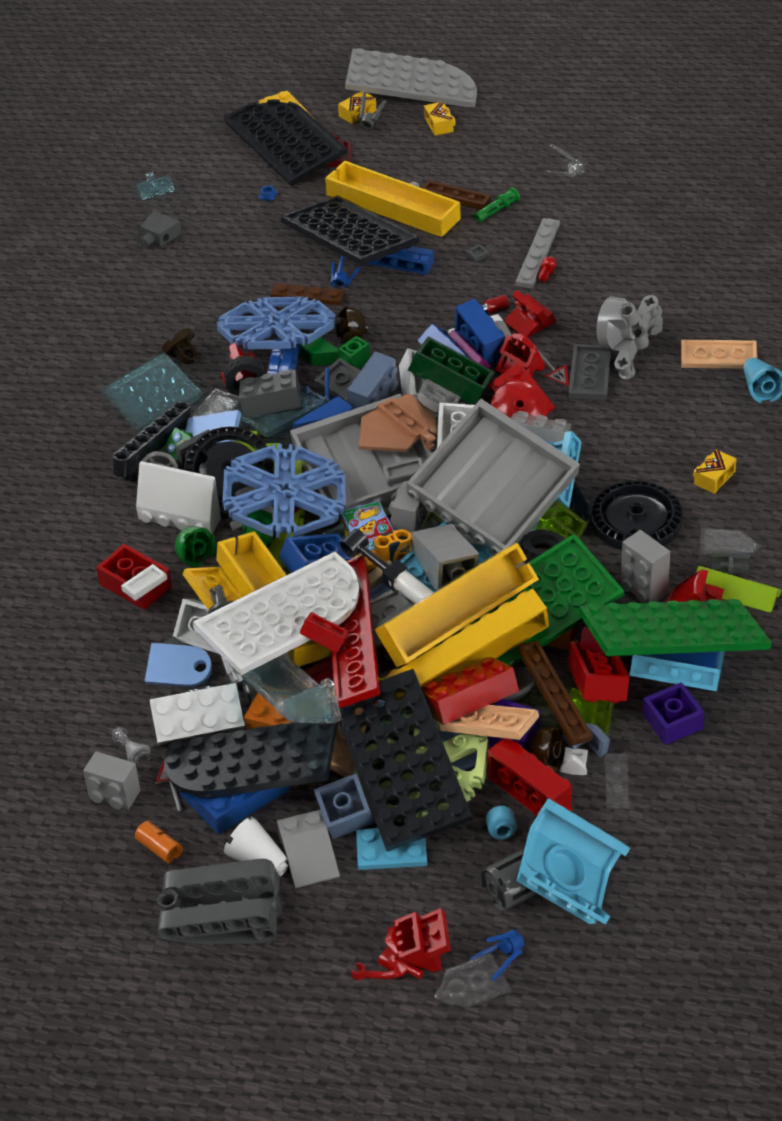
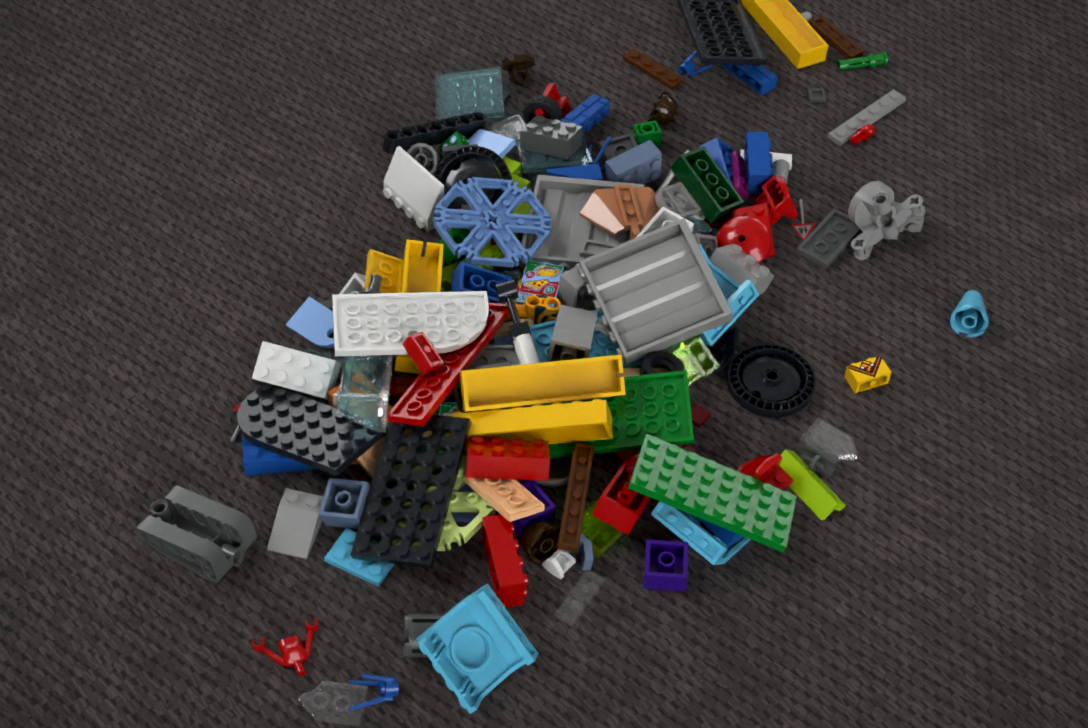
camera: 25 degrees right, 5 degrees up
(111, 780) = (194, 391): light grey brick -> none
(123, 566) = (339, 237): red brick -> none
(135, 751) = (235, 377): clear piece -> none
(144, 582) = (336, 245): white tile -> none
(158, 842) = (194, 458): orange pin -> none
(194, 542) = (400, 230): green cylinder -> none
(253, 842) = (257, 501): white cone -> none
(269, 321) = (605, 81): medium blue plate -> none
(319, 352) = (621, 119): green slope -> none
(420, 939) = (314, 645): red piece -> none
(496, 304) = (795, 145): red piece -> none
(501, 822) = (458, 583): medium azure head -> none
(529, 315) = (815, 167): red piece -> none
(575, 166) = (954, 57): clear plant -> none
(645, 567) = (734, 428): light grey brick -> none
(716, 353) = (952, 272): light nougat tile -> none

